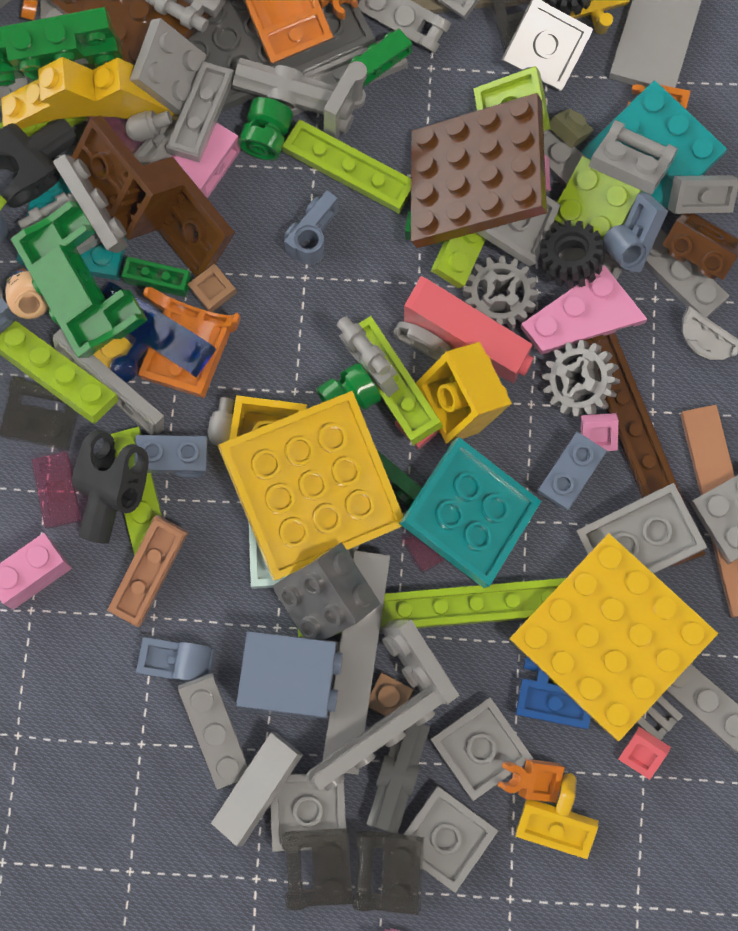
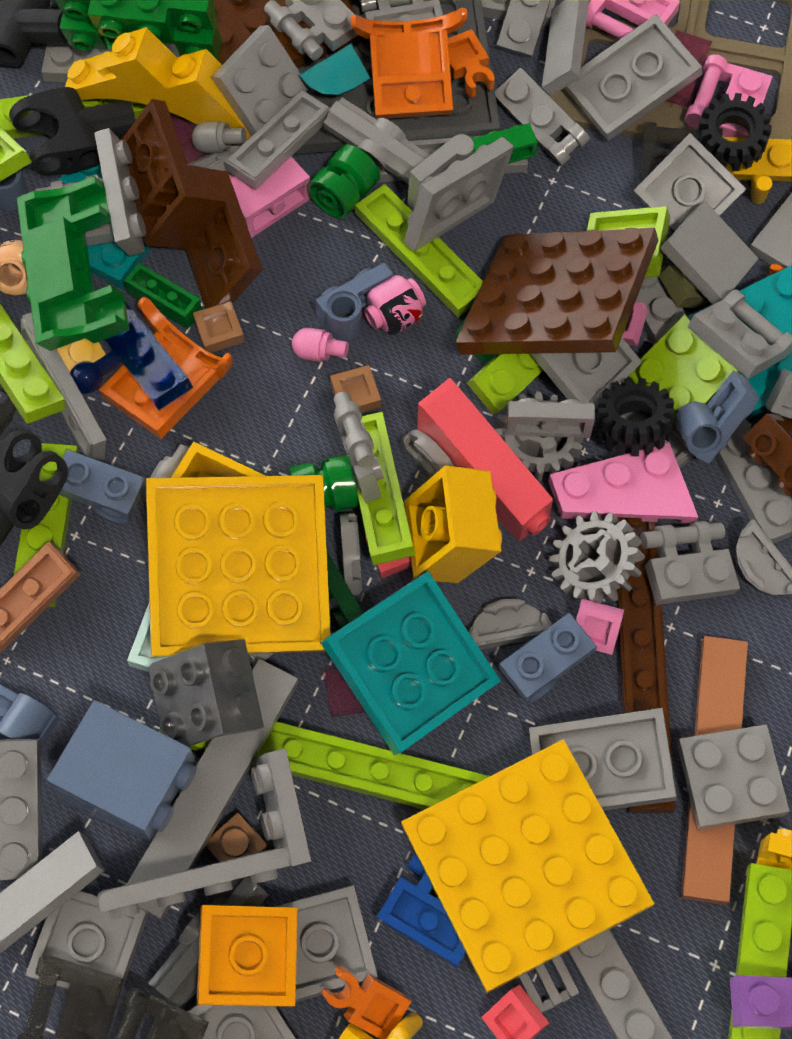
camera: 15 degrees right, 10 degrees down
(224, 35) = (336, 73): none -> teal brick
(296, 276) = (317, 345): none -> bright pink cylinder
(342, 303) = (359, 385): none -> medium nougat plate
(346, 222) = (394, 305): none -> bright pink head
(366, 111) = (457, 193): none -> light grey plate
(388, 437) = (351, 552): none -> light grey tile
(435, 780) = (247, 956): none -> light orange plate
(520, 276) = (550, 419): none -> light grey plate
(530, 452) = (508, 623): none -> light grey tile
(582, 94) = (709, 253): none -> light grey tile
(656, 367) = (689, 575): none -> light grey plate

